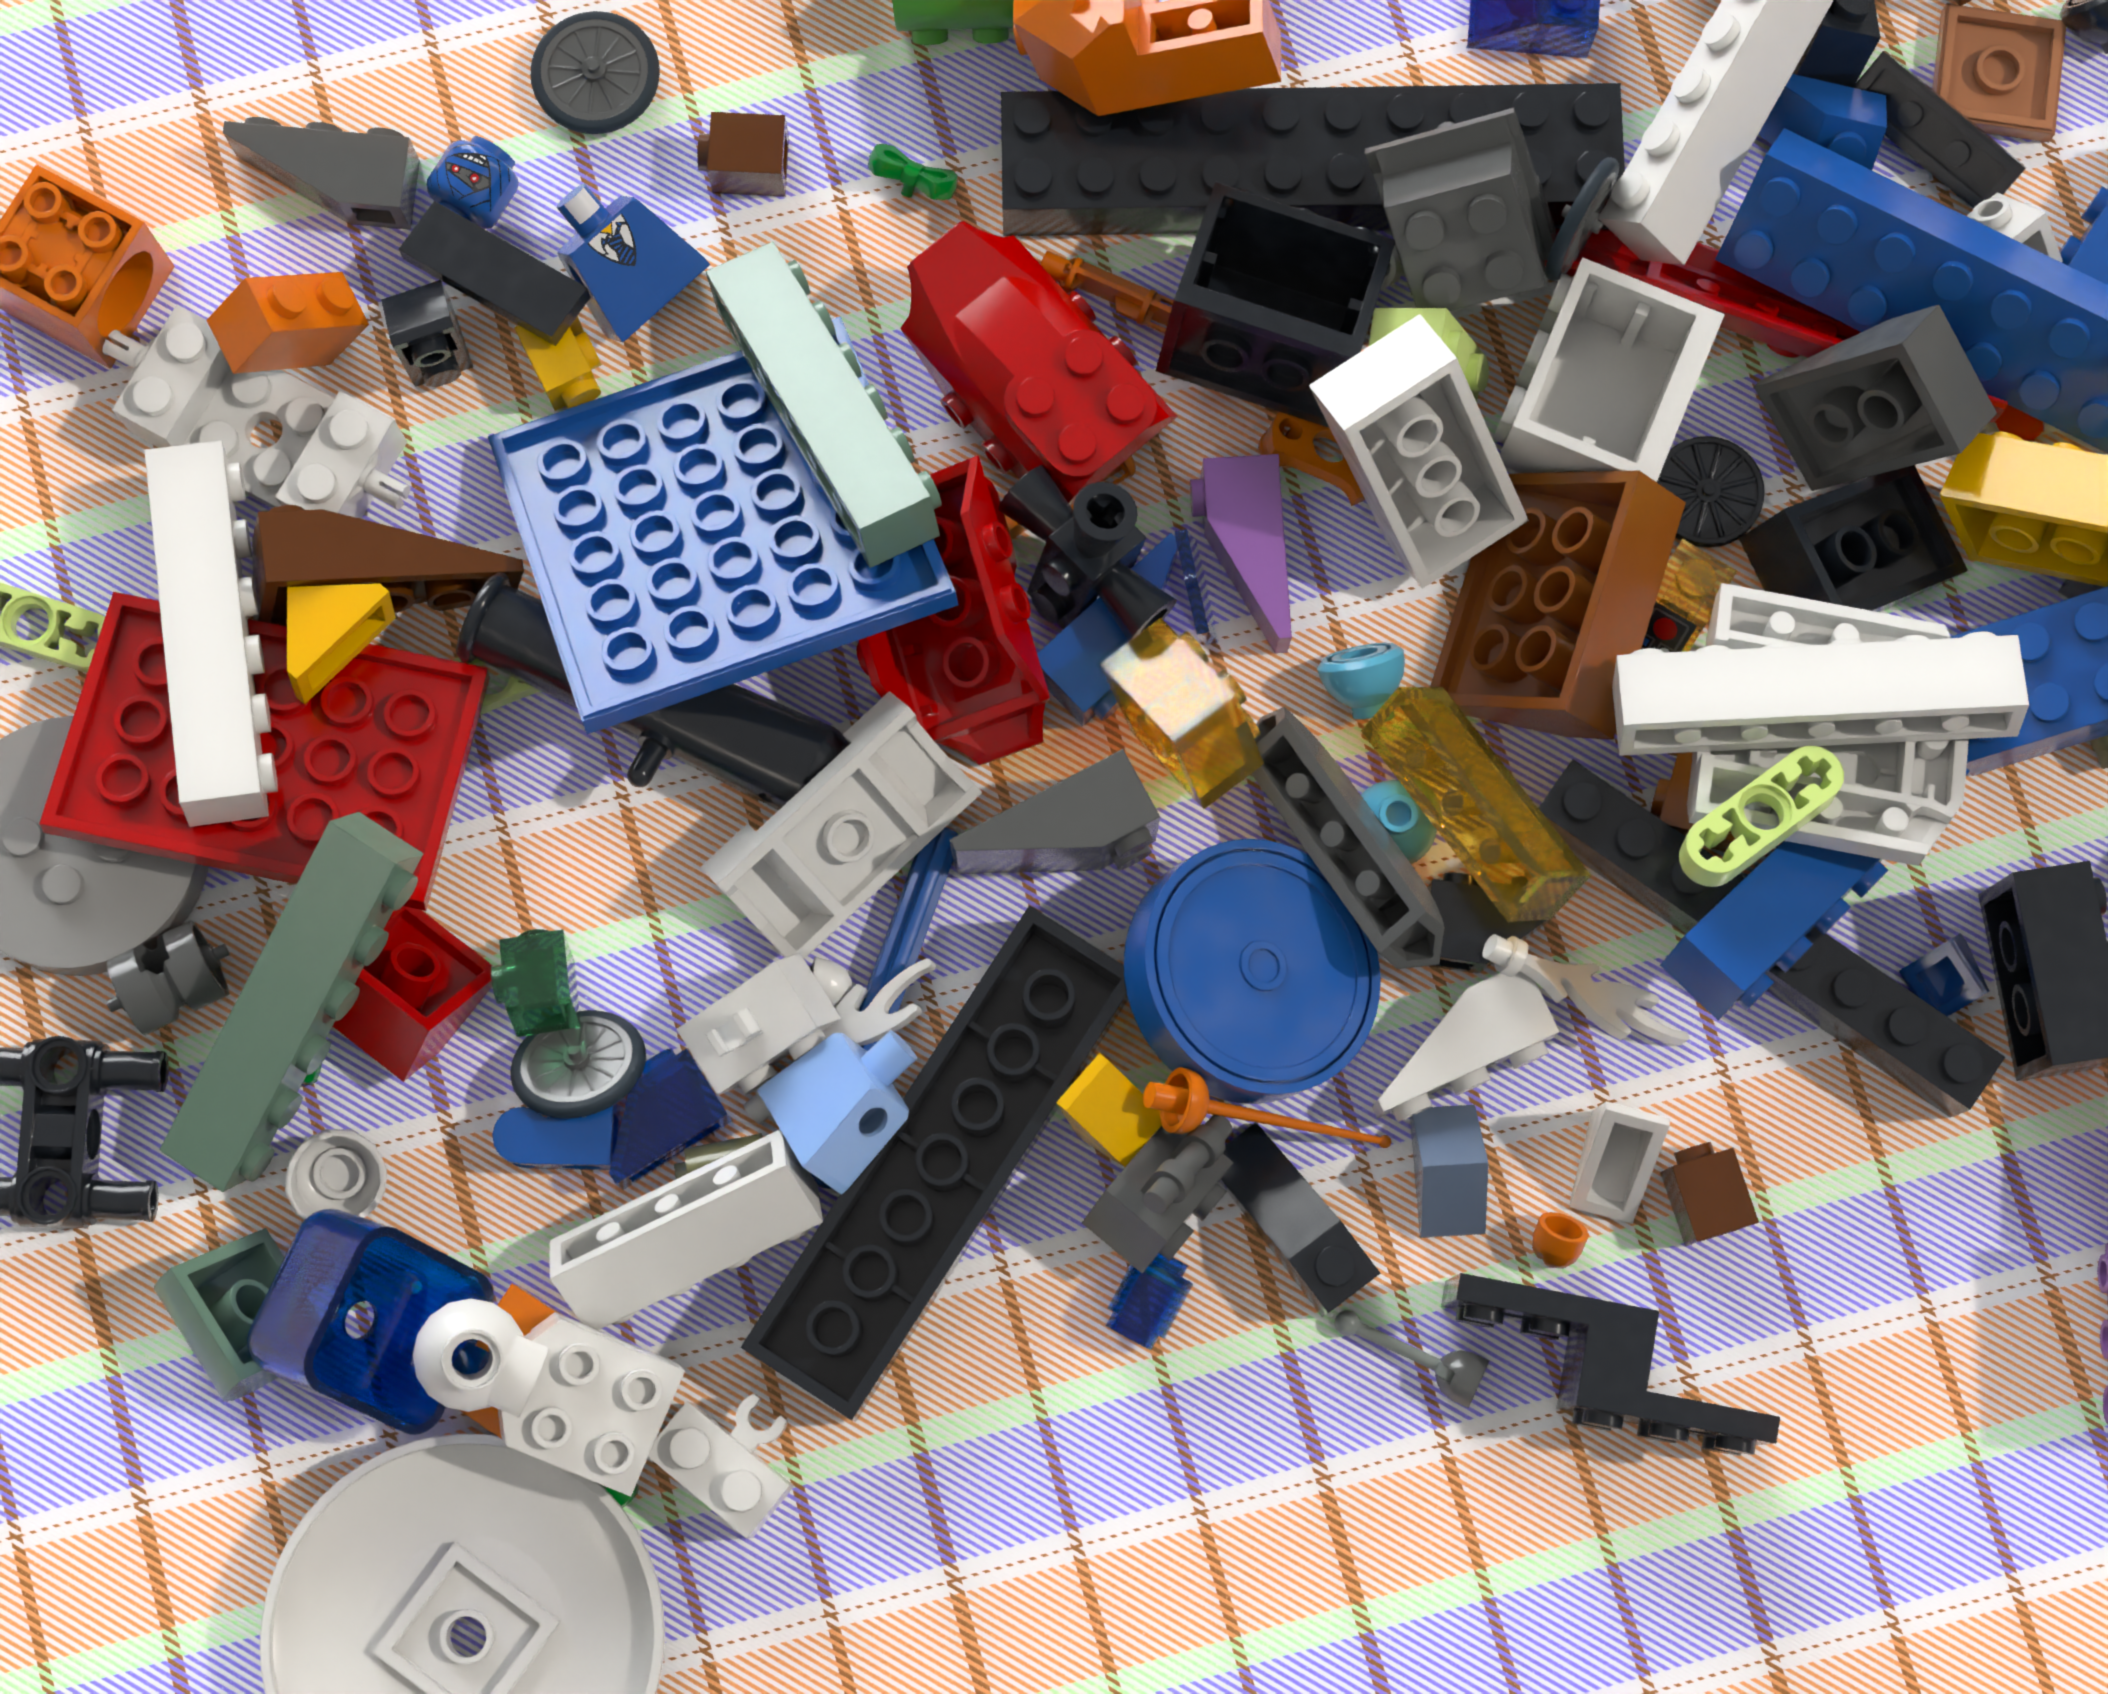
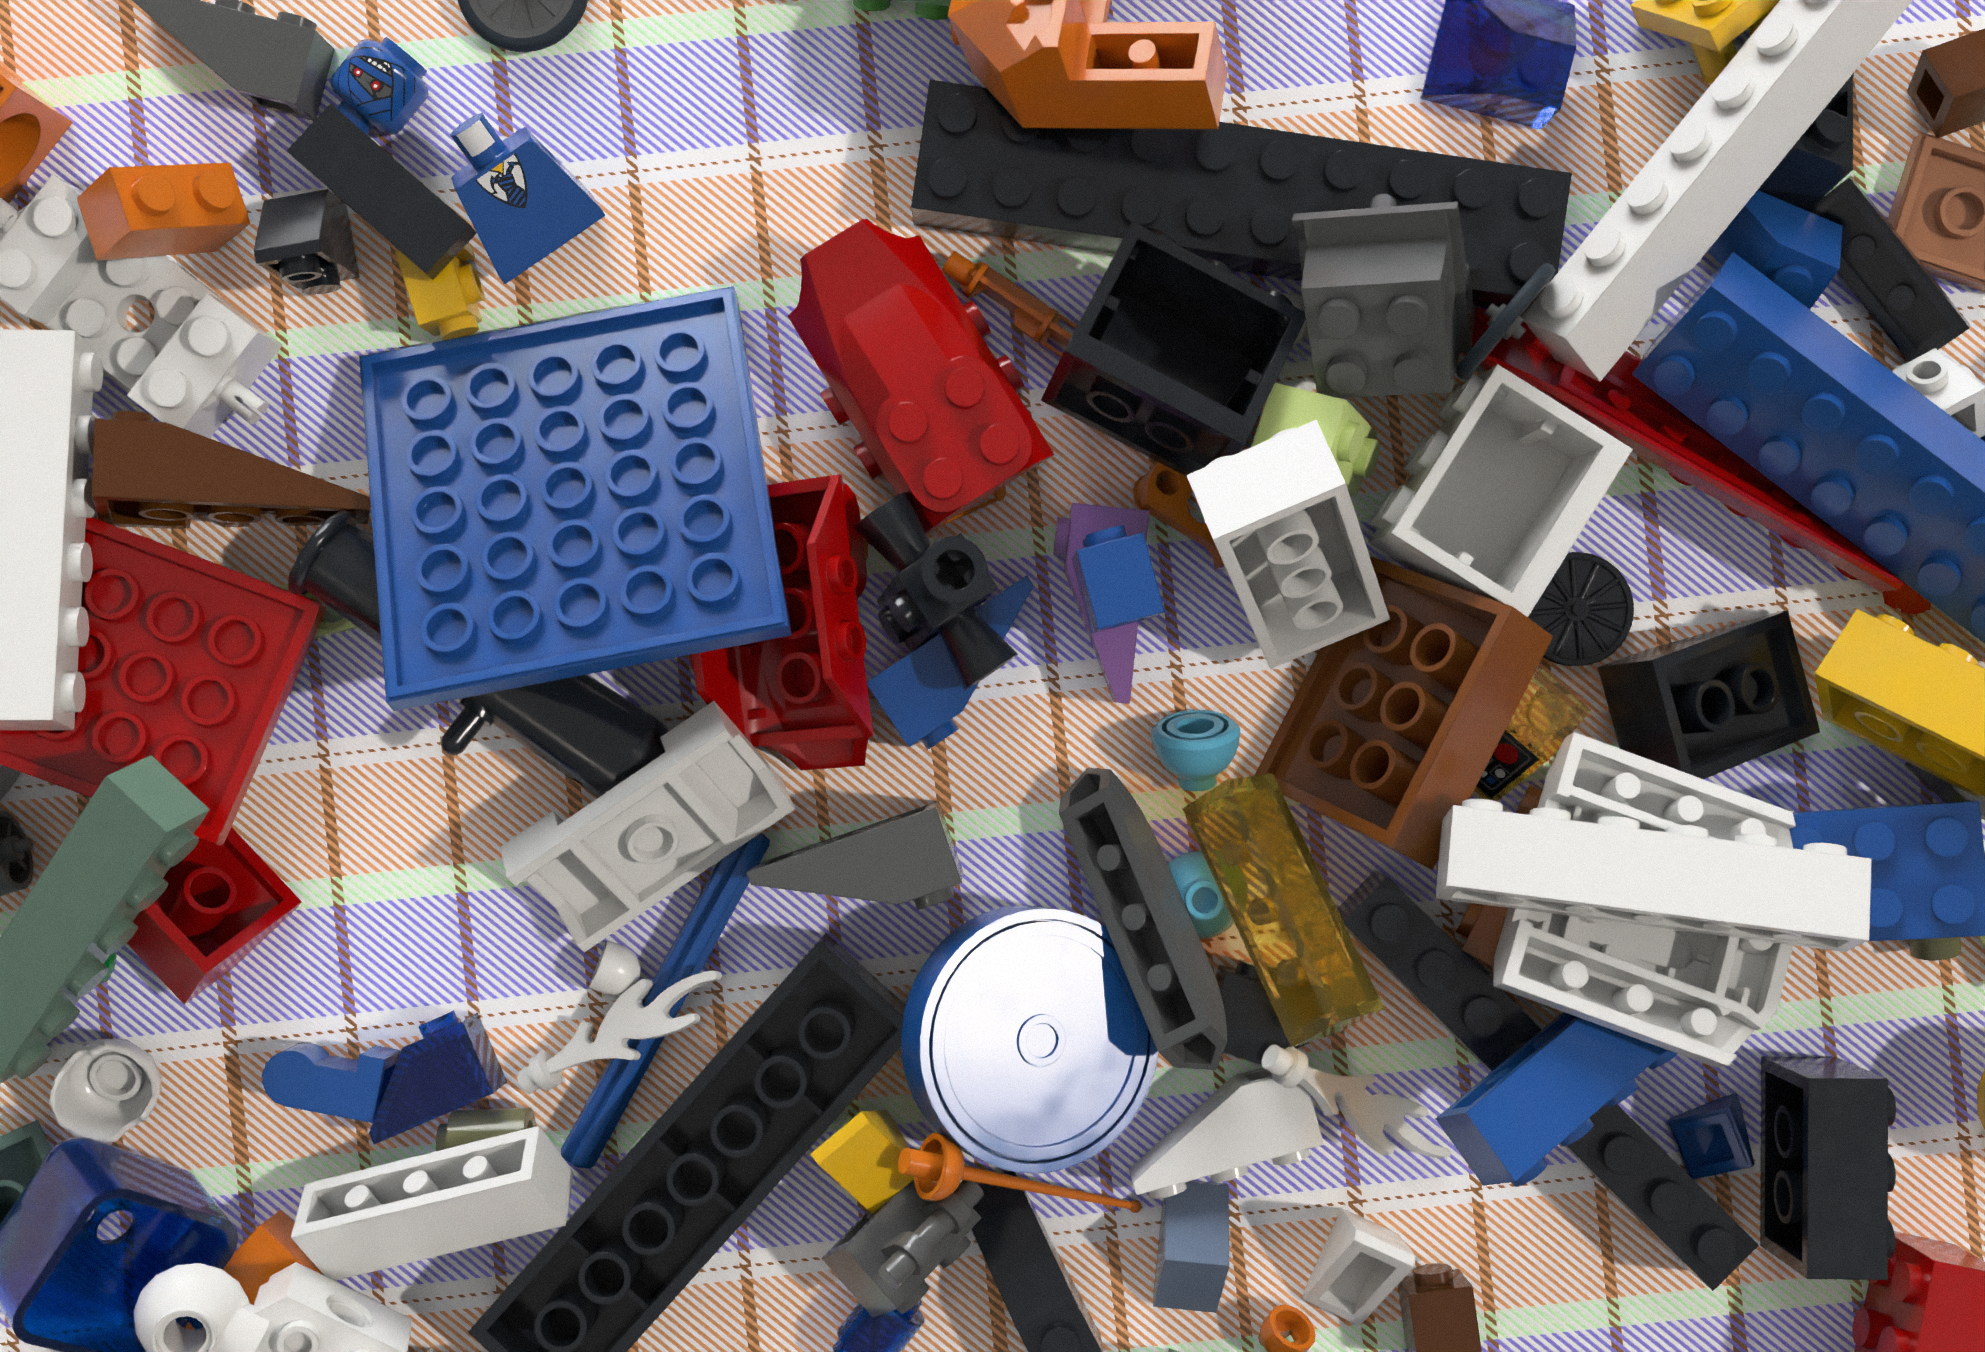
camera: 10 degrees right, 10 degrees up
(329, 629) = (156, 548): yellow slope -> none
(537, 982) = (329, 925): clear green brick -> none
(579, 1067) = (357, 1014): dark grey wheel -> none
(745, 154) = (662, 98): reddish brown brick -> none
(759, 1025) = (539, 1009): white brick -> none
(824, 404) = (691, 394): brick -> none
(840, 1104) = (599, 1113): light blue torso -> none
(891, 163) = (810, 132): green piece -> none
(1184, 711) = (1008, 766): clear yellow brick -> none
(1196, 587) = (1042, 636): clear blue piece -> none
(1259, 510) = (1116, 579): none -> blue brick
(1752, 842) = (1600, 964): yellowish green beam -> none
(1878, 401) = (1774, 561): dark grey slope -> none

